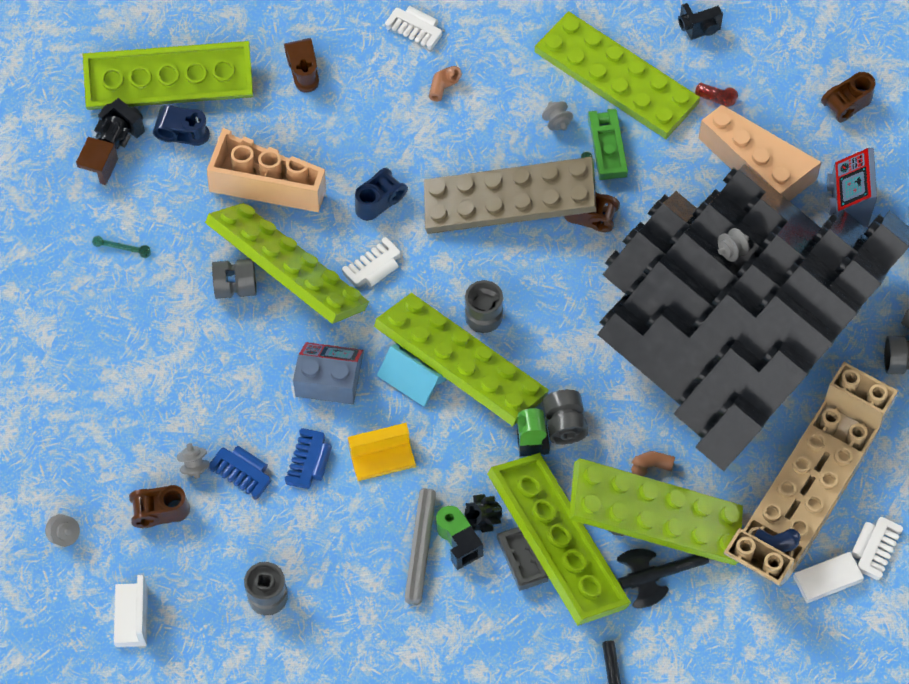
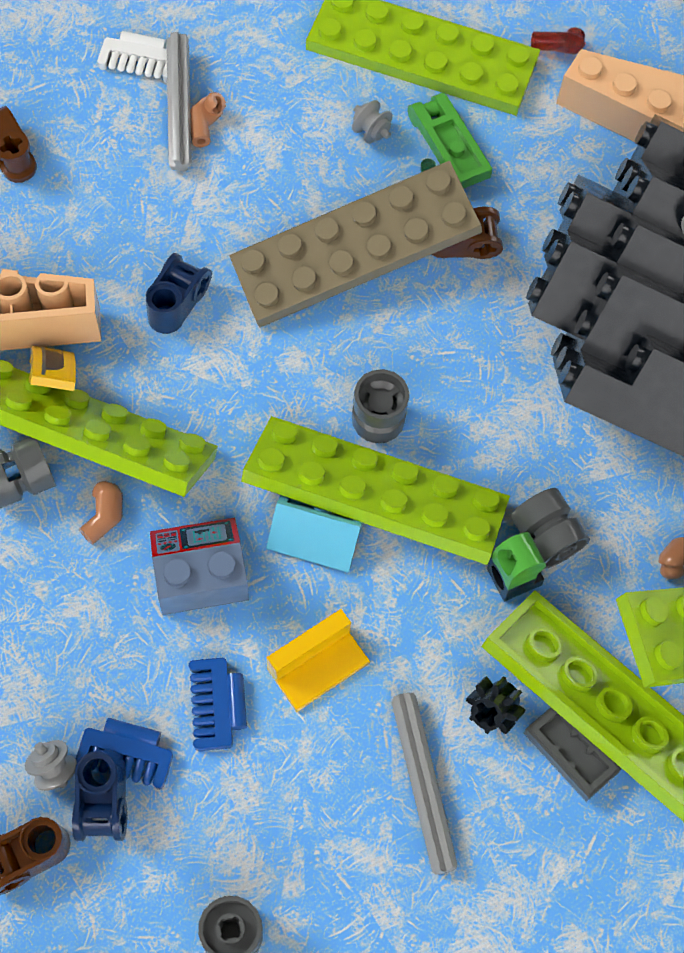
camera: 25 degrees left, 5 degrees up
(215, 489) = (100, 800): none -> dark blue piece
(279, 219) = (52, 368): none -> yellow slope
(283, 322) = (108, 511): none -> nougat arm
(377, 268) = (210, 398): white piece -> none
(429, 65) = (178, 102): none -> light grey axle
(461, 536) = (475, 747): leg -> none

